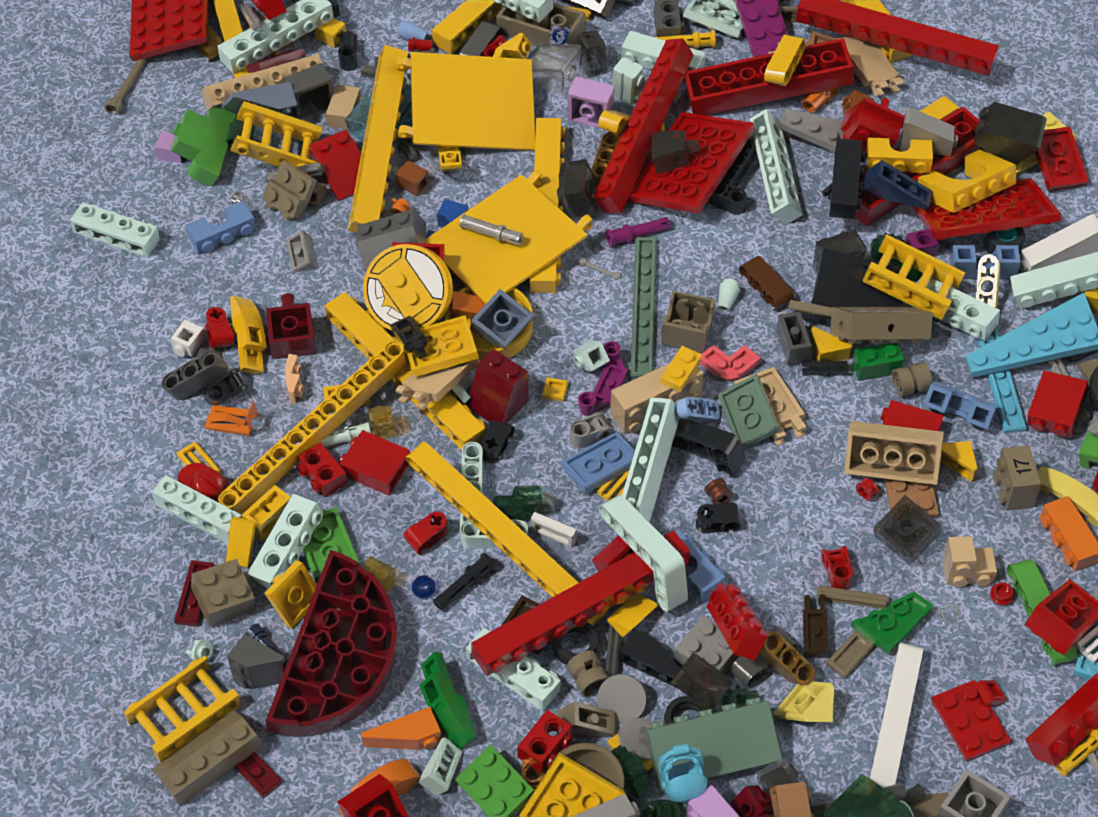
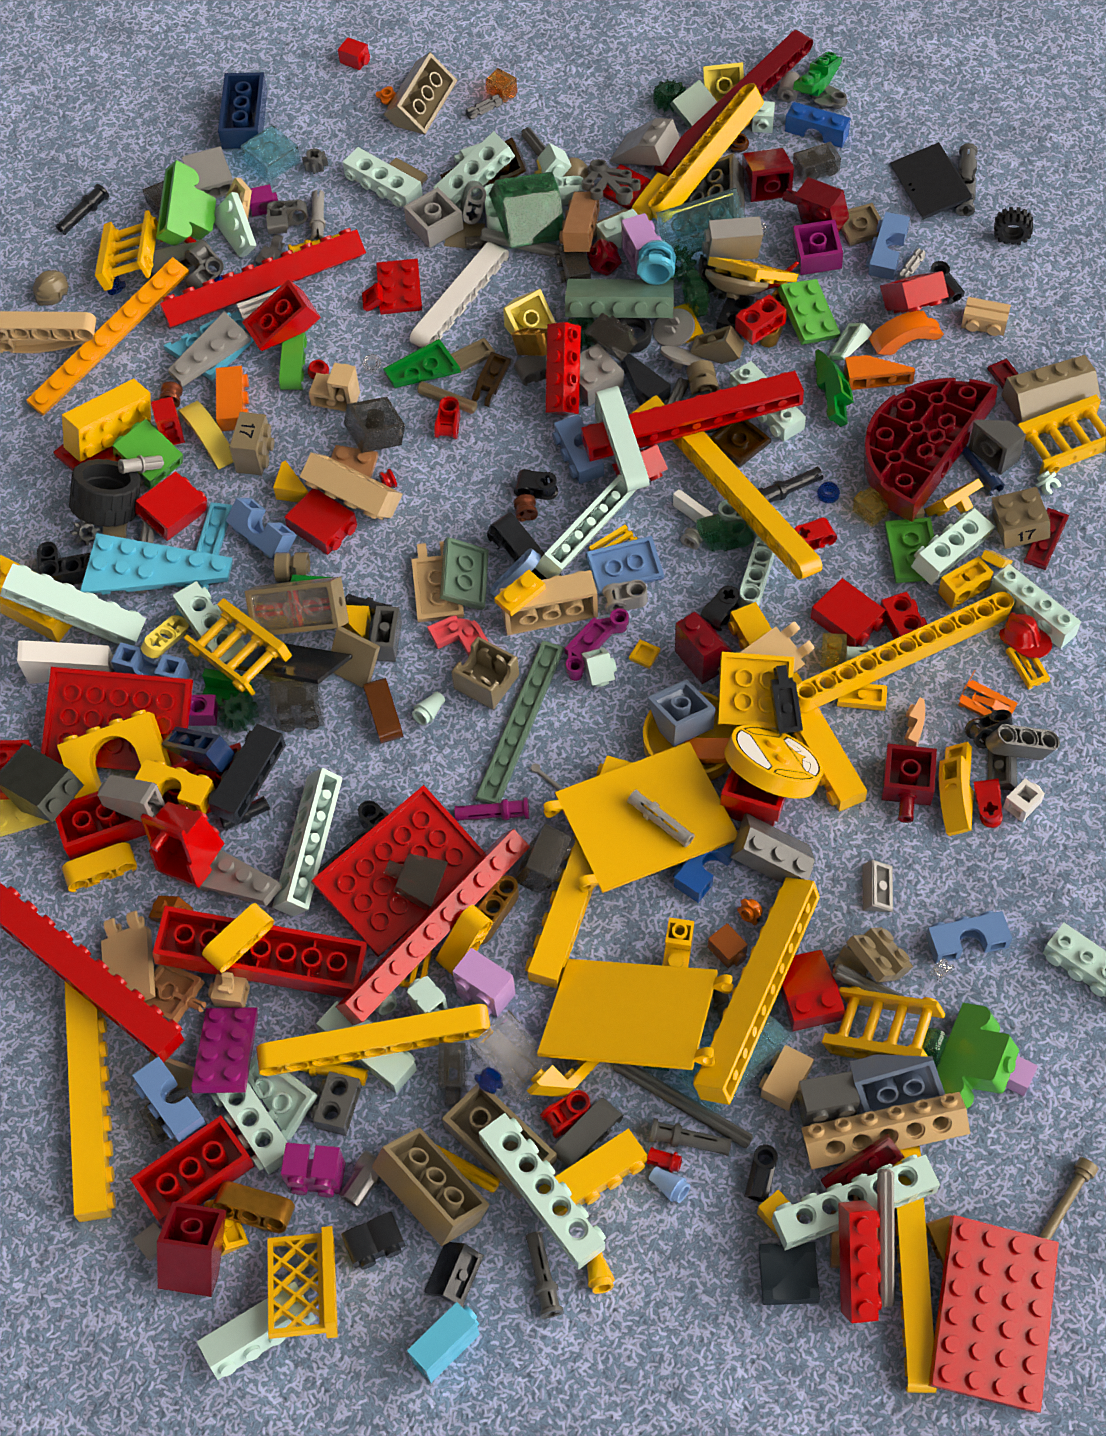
camera: 160 degrees left, 5 degrees up
(649, 45) = (372, 1040): none -> yellow beam

